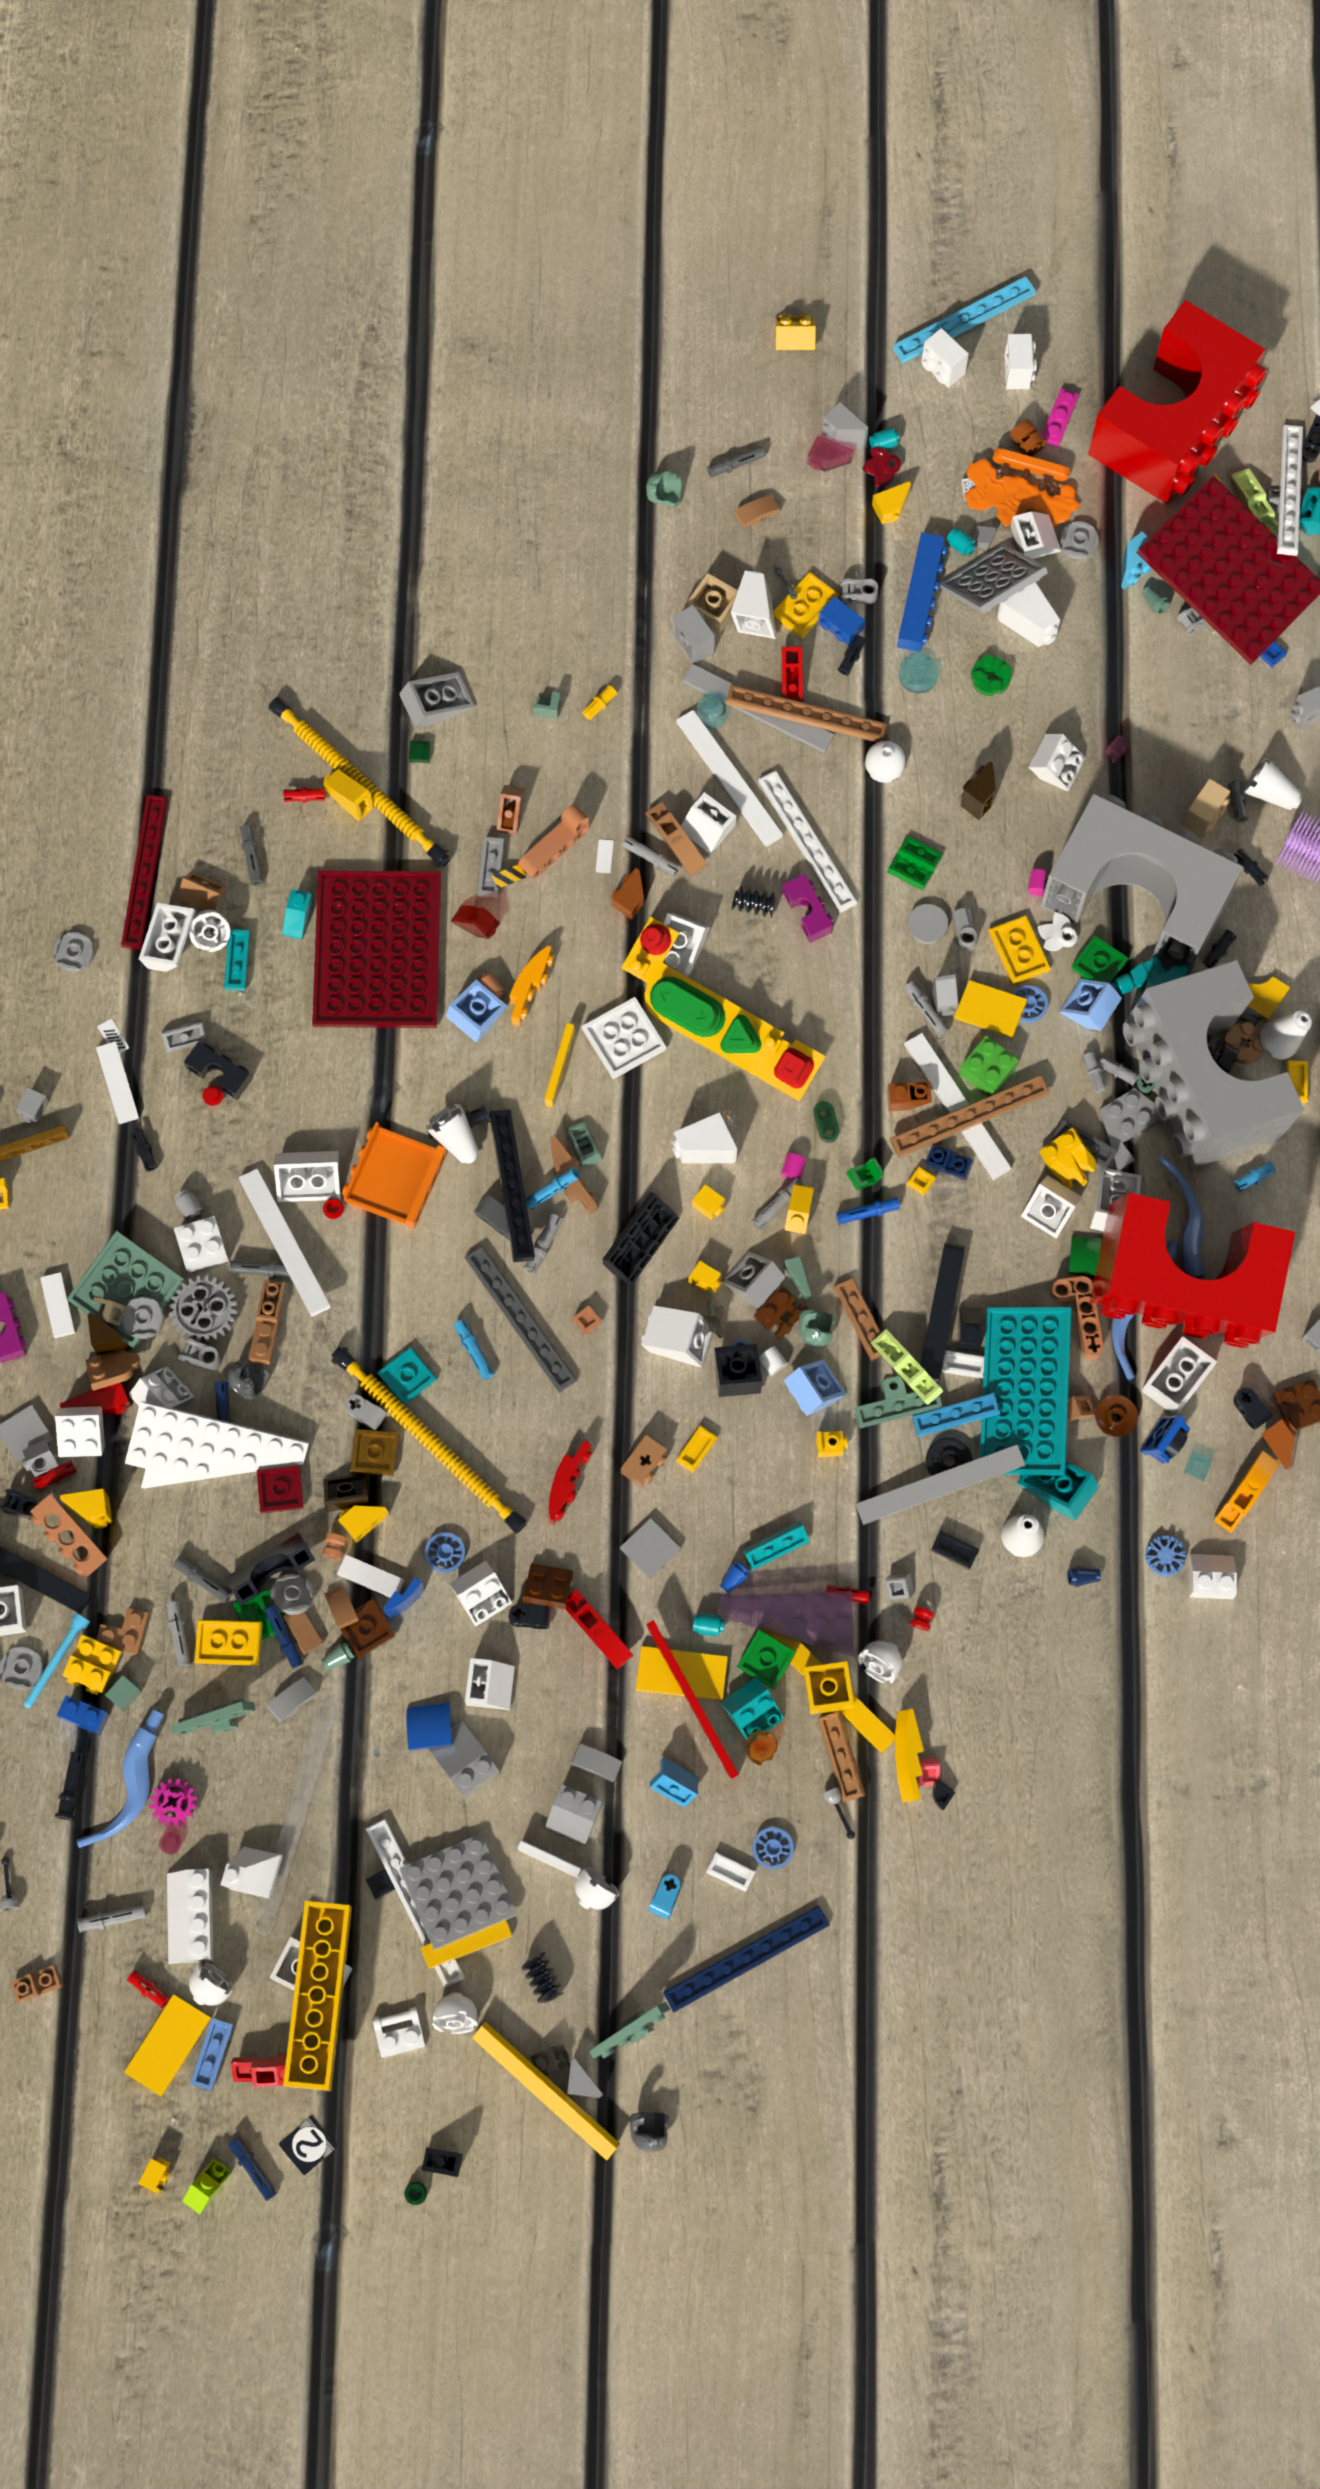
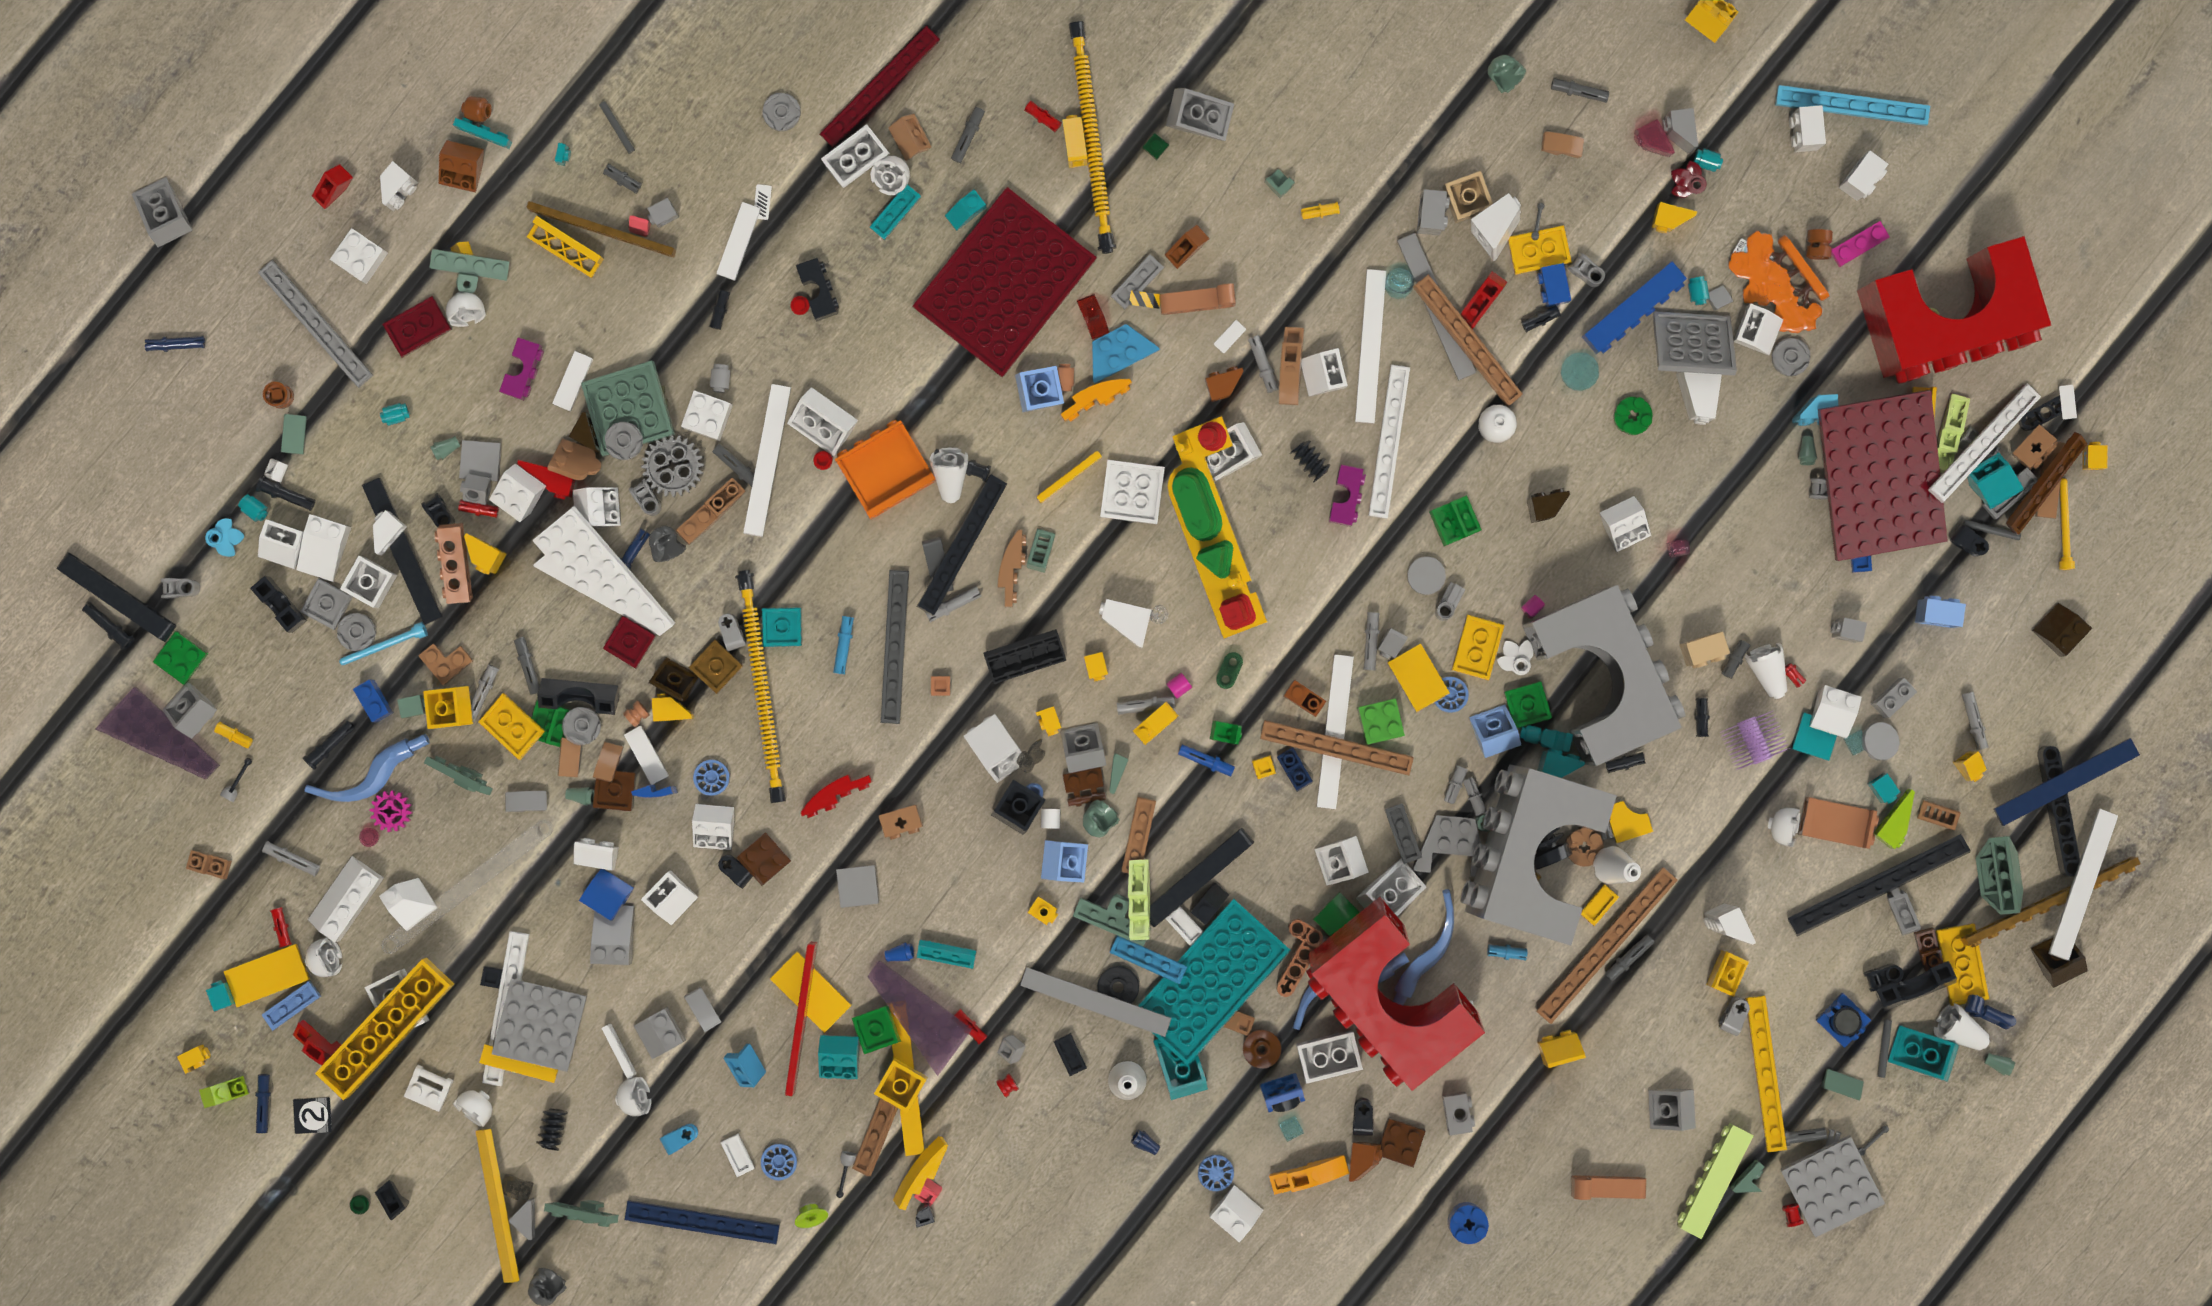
camera: 35 degrees right, 15 degrees up
(18, 1130) = (639, 226): none -> coral slope
(92, 1664) = (405, 669): yellow plate -> none
(110, 1311) = (602, 419): dark tan panel -> none
(138, 2096) = (220, 995): none -> teal brick
(157, 1666) = (448, 707): none -> yellow brick
(184, 1036) = (813, 241): light grey slope -> none
(285, 1640) = (551, 759): dark blue pin -> none
(392, 1696) = (594, 854): none -> white slope
(520, 934) = (1118, 351): none -> dark azure wing
(558, 1184) = (995, 571): dark azure pin -> none
(597, 1630) = (773, 917): red slope -> none
(696, 1449) = (946, 840): yellow tile -> none
(708, 1624) = (855, 973): teal brick -> none
(761, 1746) = (823, 1087): clear orange hair -> none
(841, 1873) = (810, 1216): none -> lime piece
(881, 1660) = (955, 1093): white cylinder -> none
(1069, 1158) = (1381, 836): yellow plate -> none
(1297, 779) = (1793, 674): none -> red pin

